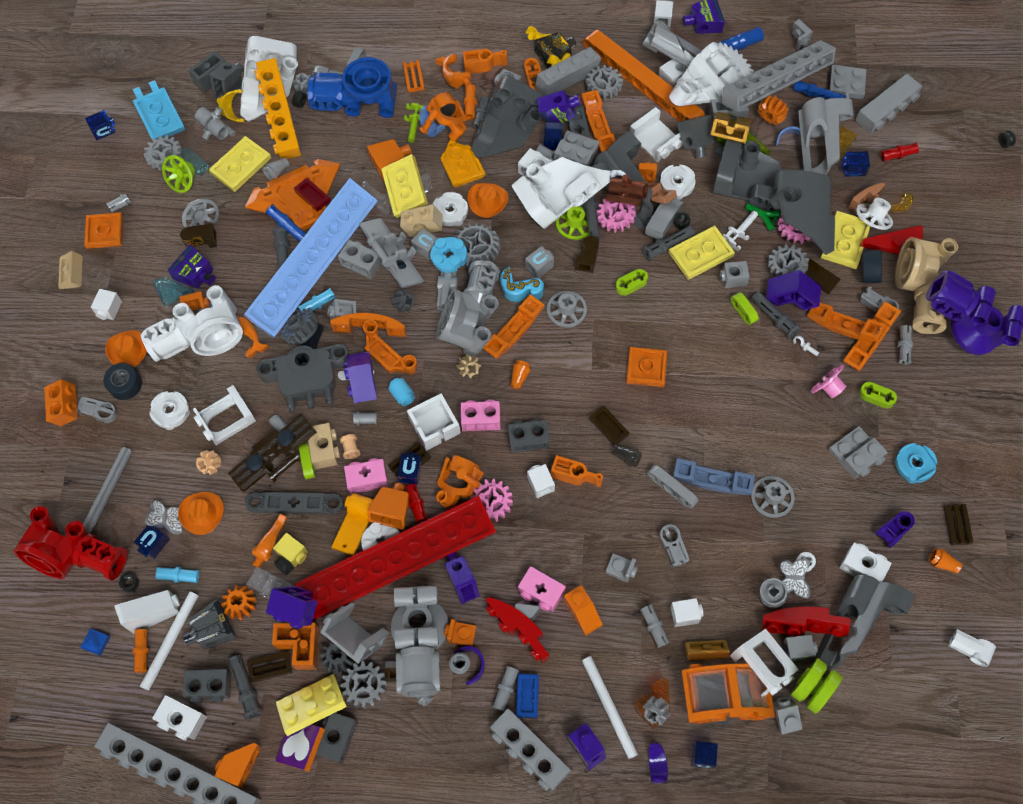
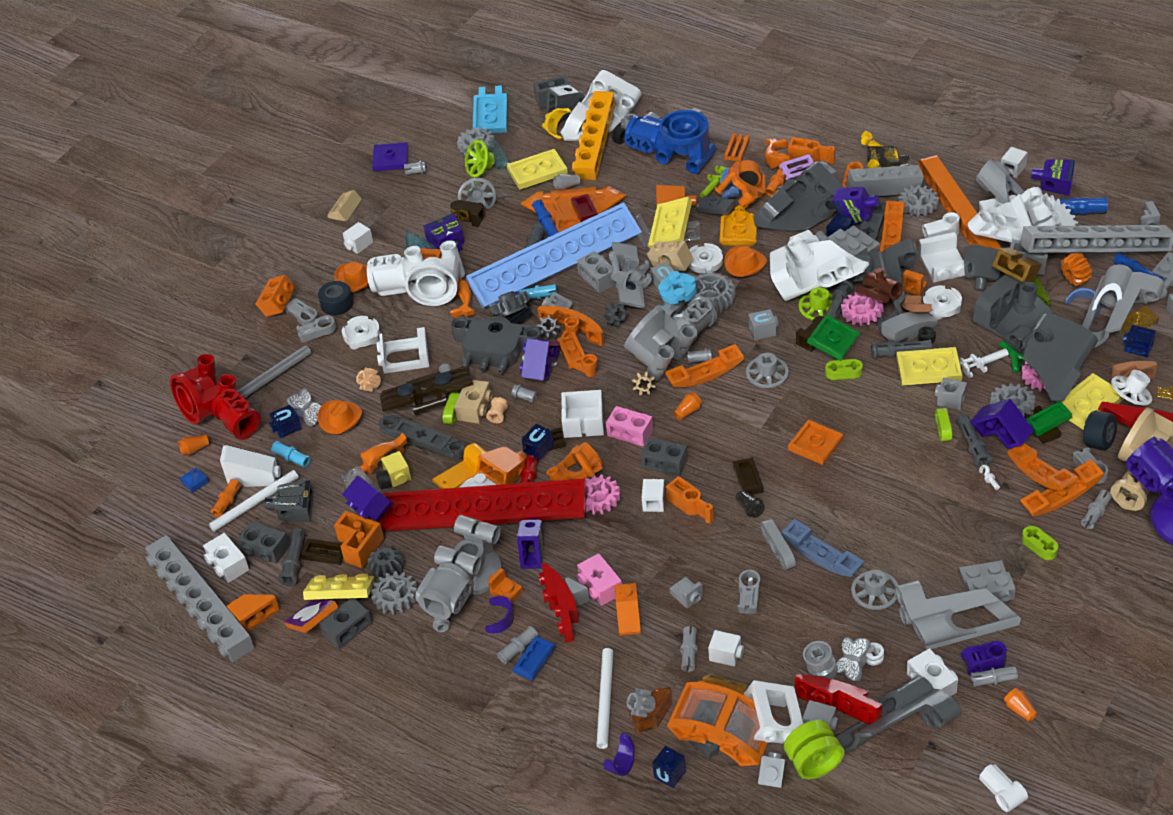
camera: 30 degrees right, 20 degrees down
(71, 604) = (192, 444): none -> orange cone
(85, 197) = (390, 156): none -> dark purple plate
(101, 125) = (436, 106): clear blue brick -> none
(103, 230) = (390, 185): orange tile -> none
(120, 426) = (315, 329): none -> light grey piece
(124, 578) = (248, 441): pearl dark grey axle -> none
(213, 124) = (531, 131): light grey pin -> none
(232, 608) = (327, 492): orange gear -> none
(350, 333) = (553, 327): none -> light grey gear
(350, 636) = (401, 541): light grey panel -> none
(356, 477) = (495, 434): bright pink brick -> none
(401, 391) = (569, 381): medium azure brick -> none
(430, 148) = (715, 205): none -> dark grey plate
(459, 658) = (486, 604): light grey cone -> none
(476, 89) = (787, 172): none -> lavender tile
(501, 316) = (699, 356): none -> light grey pin
(509, 722) = (522, 726): light grey brick -> none
(520, 290) = (724, 337): medium azure animal -> none
(586, 746) = (561, 708): dark purple torso -> none
(611, 255) = (833, 337): none -> green tile
(638, 103) = (949, 224): none -> white piece
(827, 270) = (1049, 418): none -> green tile
(833, 385) = (994, 514): bright pink wheel -> none
(840, 510) = (933, 616): none -> light grey panel
(910, 472) = (1043, 623): medium azure plate -> none
(910, 542) = (994, 676): none -> light grey axle
(966, 524) = (1062, 667): dark brown tile -> none

